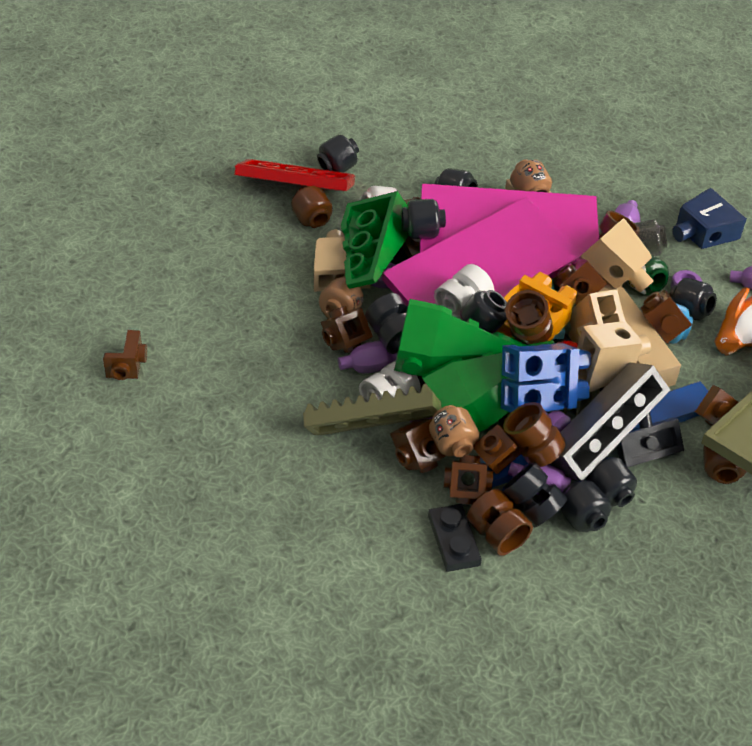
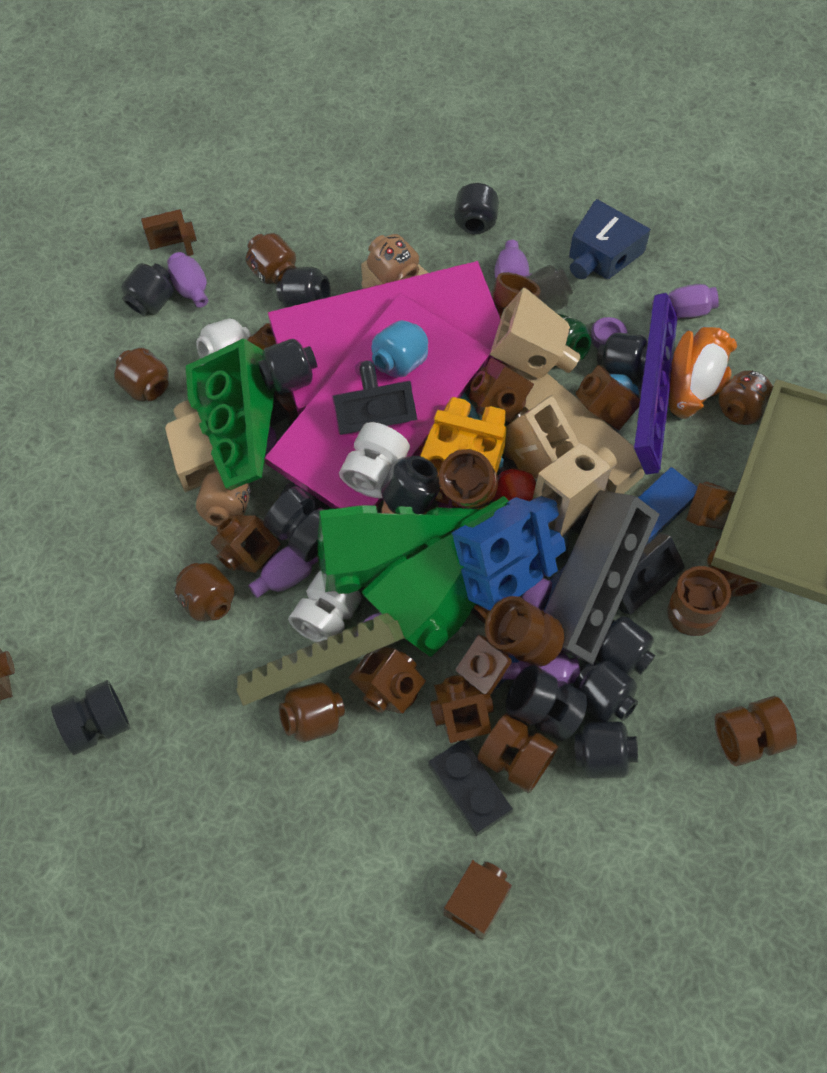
camera: 15 degrees left, 15 degrees up
(202, 402) = (90, 717): none -> black wheel
(295, 174) = (105, 337): red tile -> none
(303, 350) = (203, 590): none -> reddish brown head
(352, 449) = (311, 712): none -> reddish brown head
(369, 122) = (169, 229): none -> reddish brown bracket
(371, 156) = (188, 278): none -> medium lavender plant
(430, 604) = (478, 898): none -> reddish brown brick
(436, 158) = (269, 257): none -> reddish brown head
(453, 431) = (428, 660): medium nougat head -> none
(491, 259) = (374, 403): none -> black plate
(511, 228) = (399, 348): none -> dark azure head
(569, 543) = (605, 750): none -> black head
(612, 171) = (476, 208): none -> black head
(683, 469) = (698, 600): none -> reddish brown wheel
(706, 318) = (656, 385): none -> dark purple tile
(707, 566) = (755, 730): none -> reddish brown wheel

